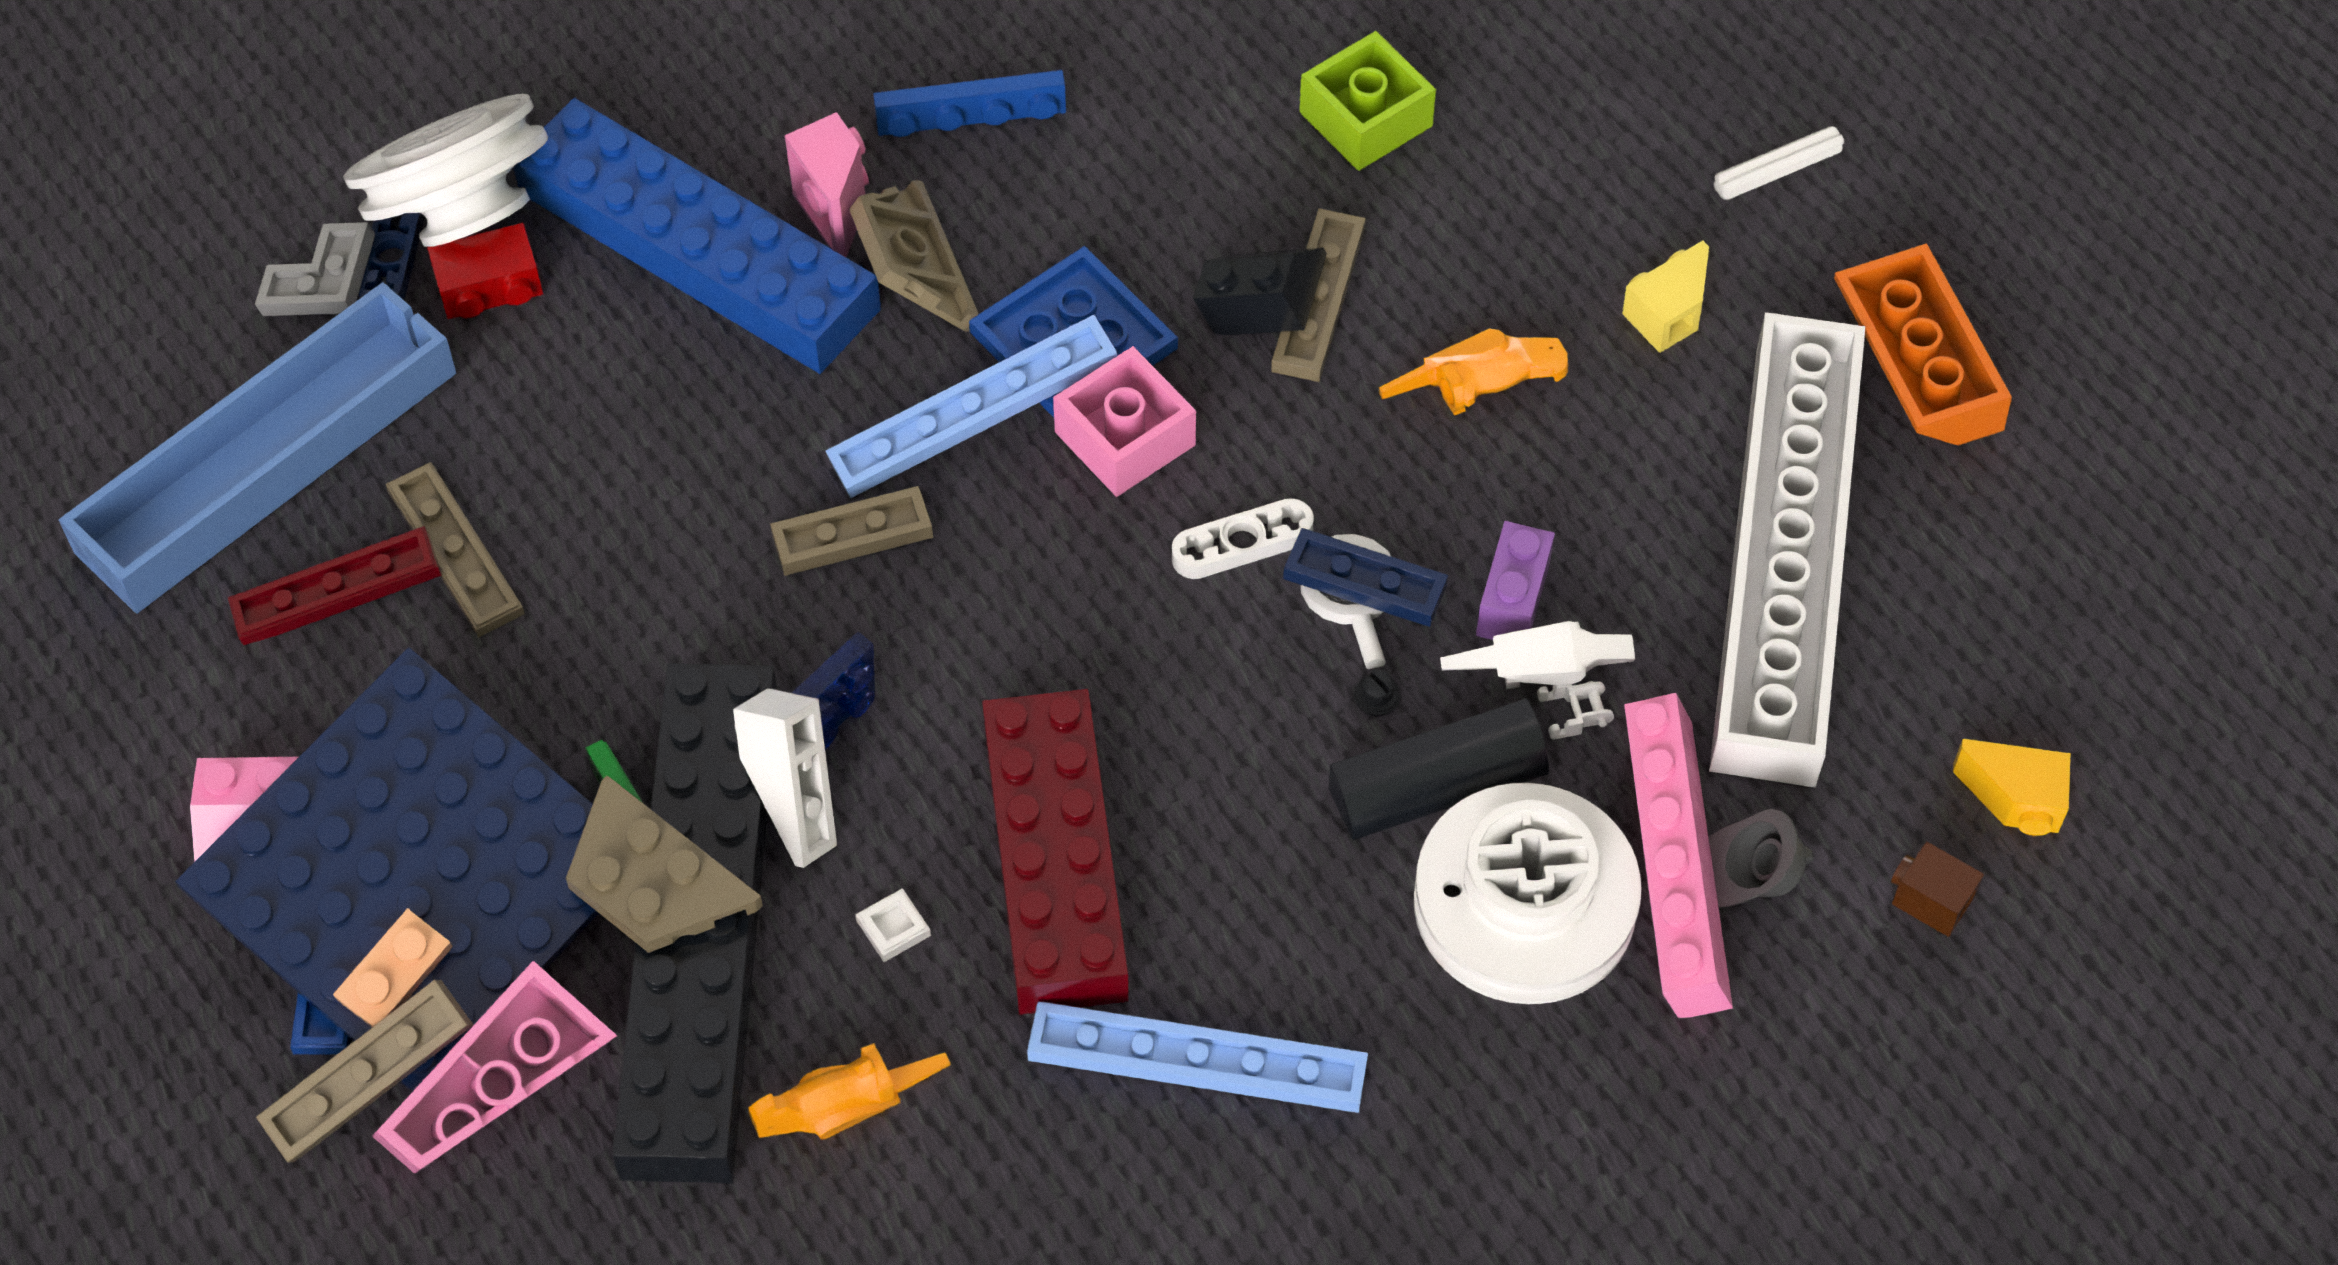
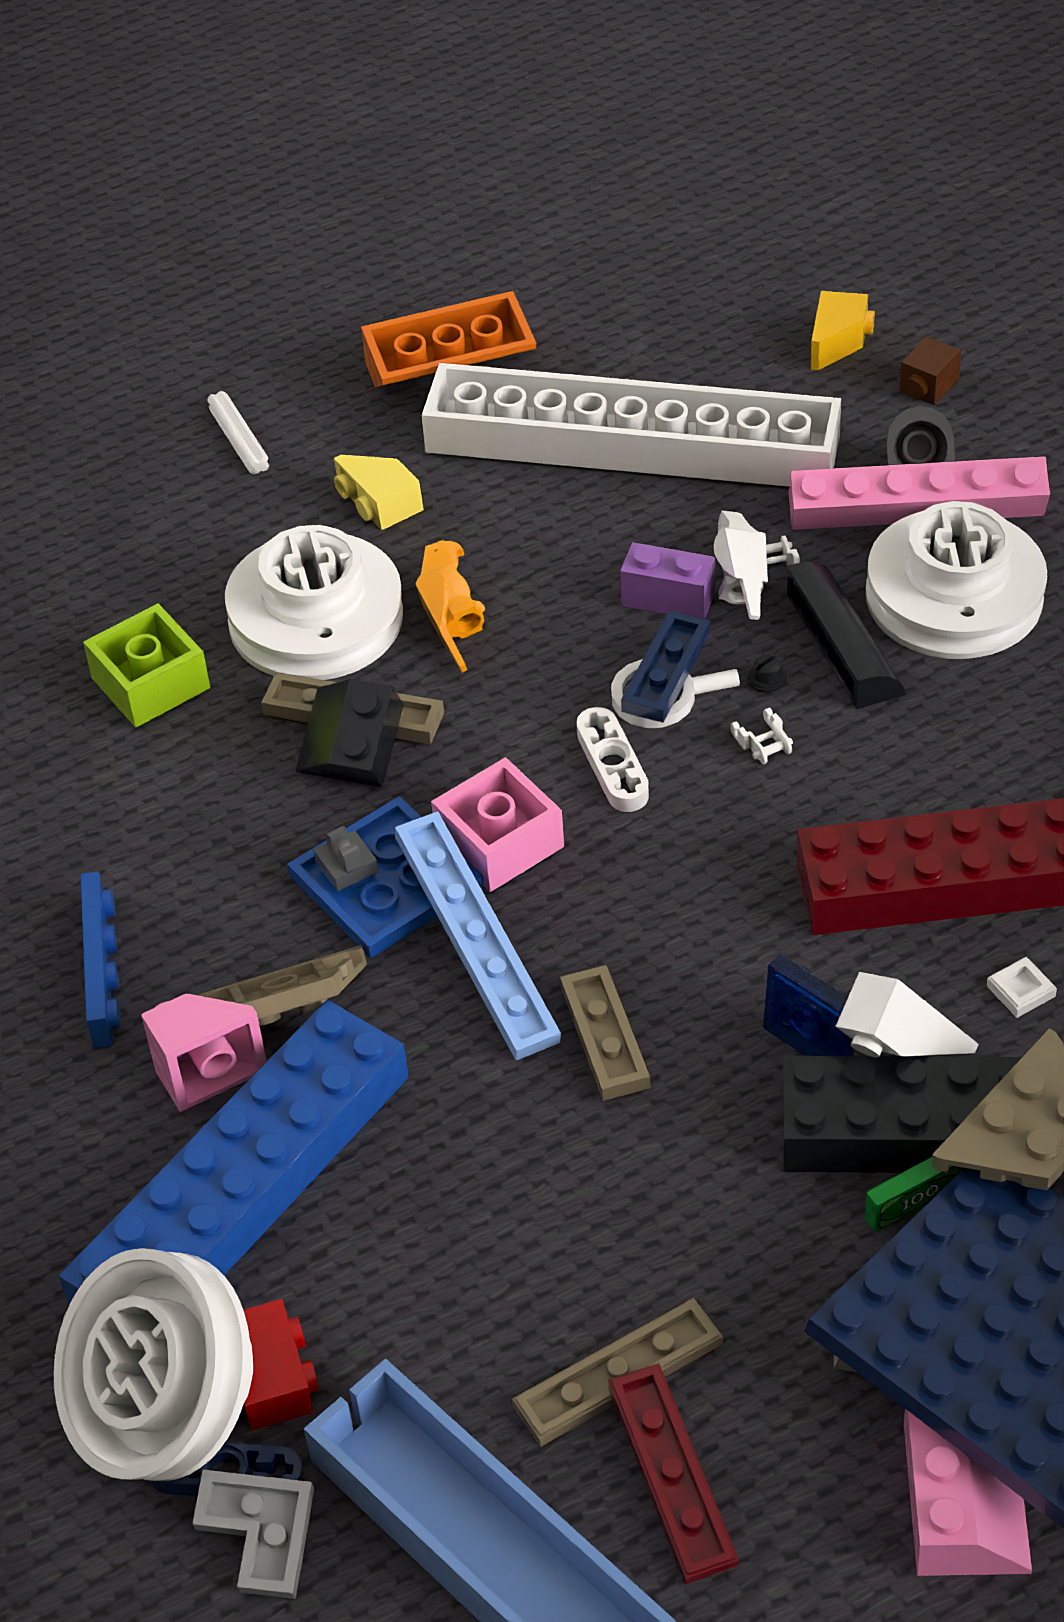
camera: 85 degrees left, 10 degrees down
(1078, 290) = (345, 858): none -> dark grey tile
(1291, 700) = (748, 740): none -> white piece
(1487, 244) = (314, 604): none -> white wheel

